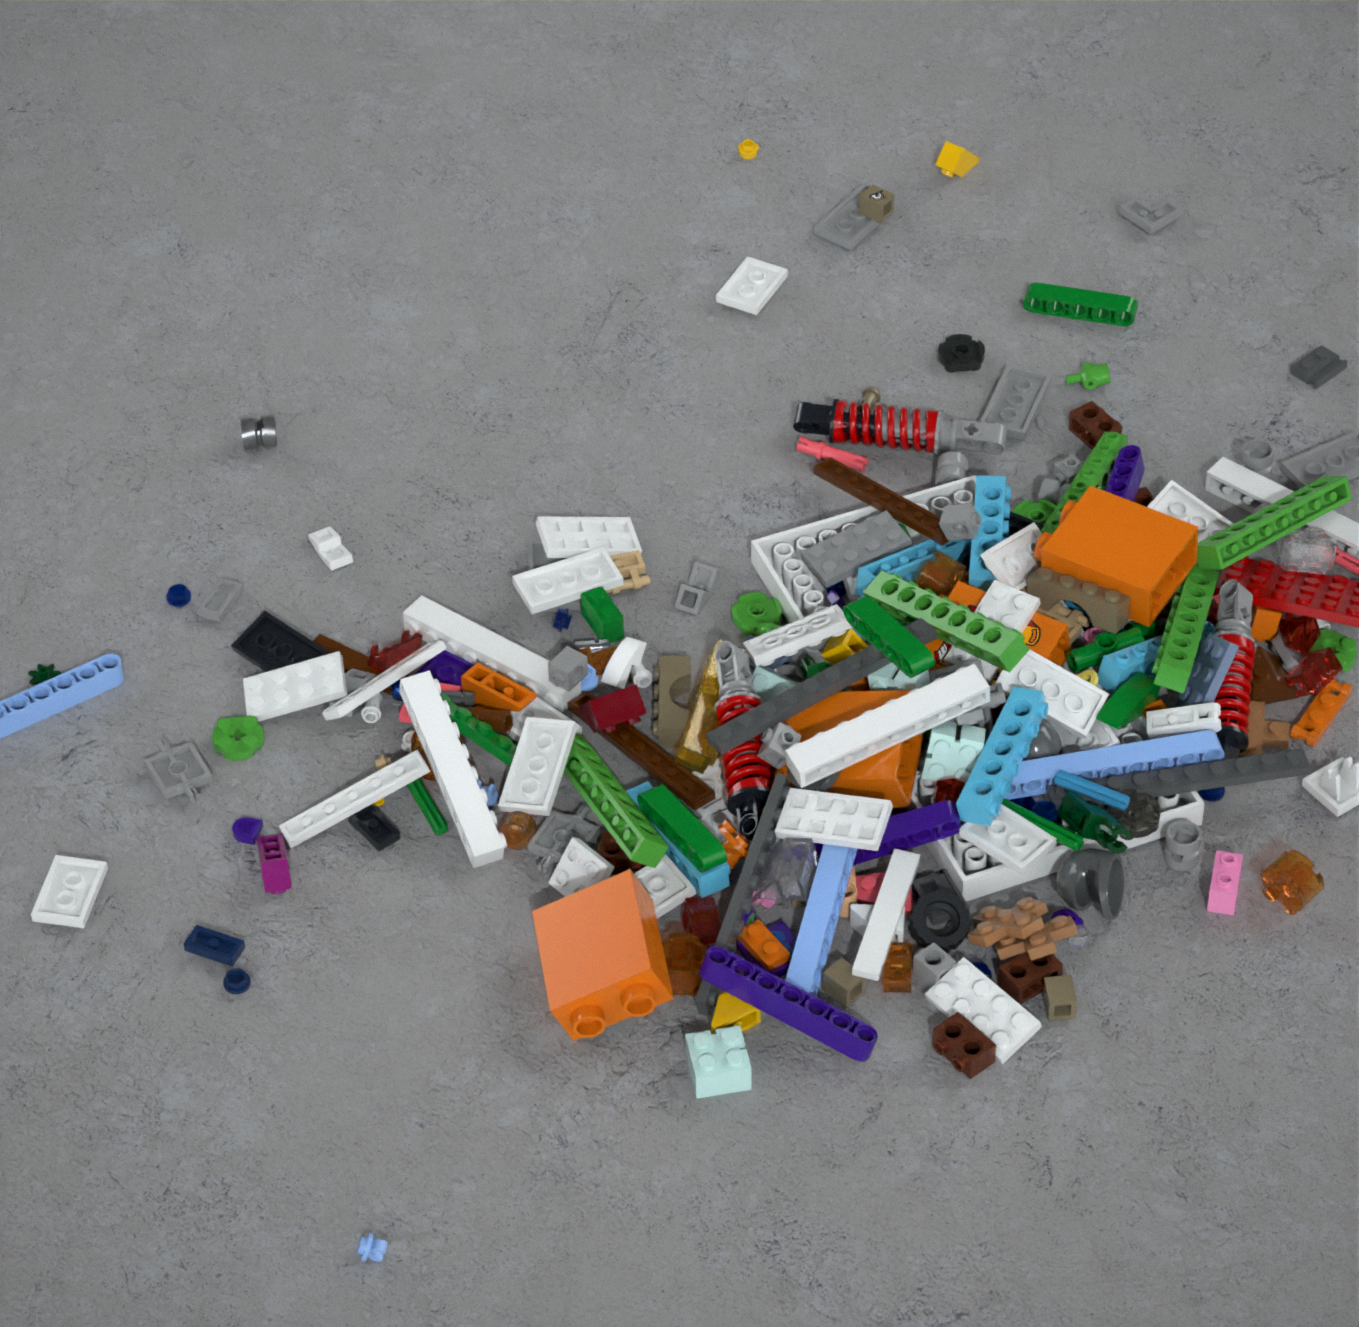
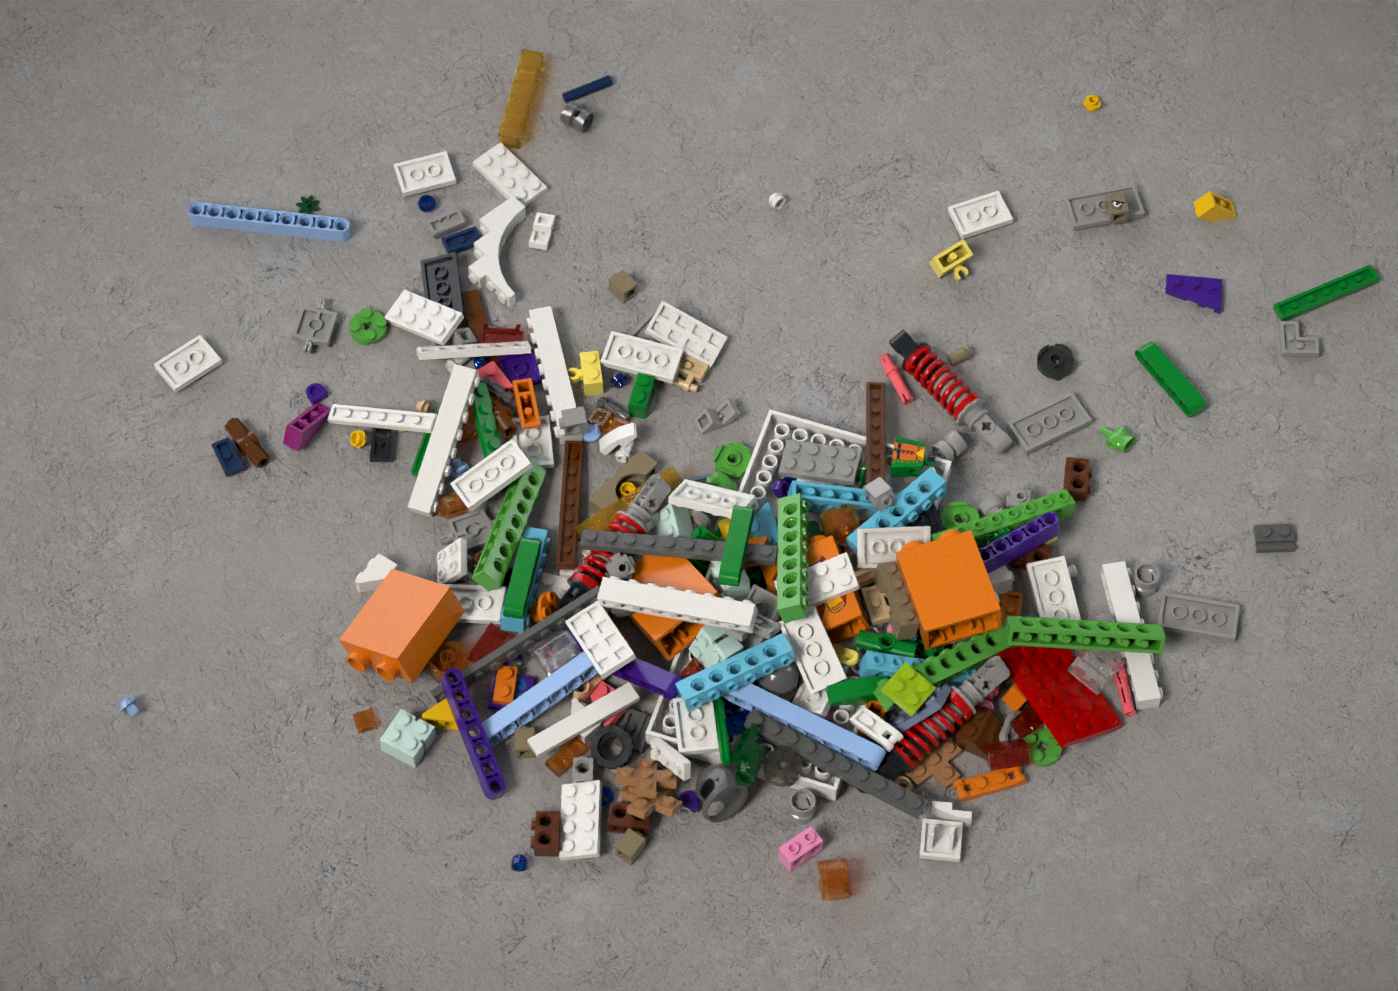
camera: 40 degrees right, 15 degrees up
(147, 572) = (424, 174): none -> white plate
(180, 453) = (521, 99): none -> clear yellow brick
(222, 917) = (247, 443): none -> reddish brown piece
(236, 981) = (218, 489): dark blue plate -> none
(238, 408) = (587, 89): none -> dark blue axle
(241, 524) = (509, 175): none -> white plate
(254, 603) = (461, 240): none -> dark blue plate
(294, 593) = (495, 229): none -> white arch
(338, 837) = (358, 438): none -> yellow plate
(472, 540) = (623, 286): none -> dark tan brick
(510, 940) = (374, 573): none -> white slope
(528, 628) = (589, 373): none -> light yellow brick
(543, 386) = (777, 200): none -> white plate
(613, 709) = (575, 467): dark red slope -> none
(649, 1082) = (365, 721): none -> clear orange tile
(683, 700) = (627, 486): none -> yellow plate
(772, 330) = (951, 260): none -> light yellow brick
(936, 489) = (909, 458): none -> torso
(966, 1093) = (519, 863): none -> clear blue hinge
(1015, 884) = (670, 758): none -> white plate
(1018, 227) = (1201, 290): none -> dark purple wing
(1092, 790) = (768, 733): dark azure axle -> none
(1130, 166) = (1326, 293): none -> green plate
(1190, 651) = (908, 689): none -> lime plate
(1321, 757) = (944, 811): none -> white slope

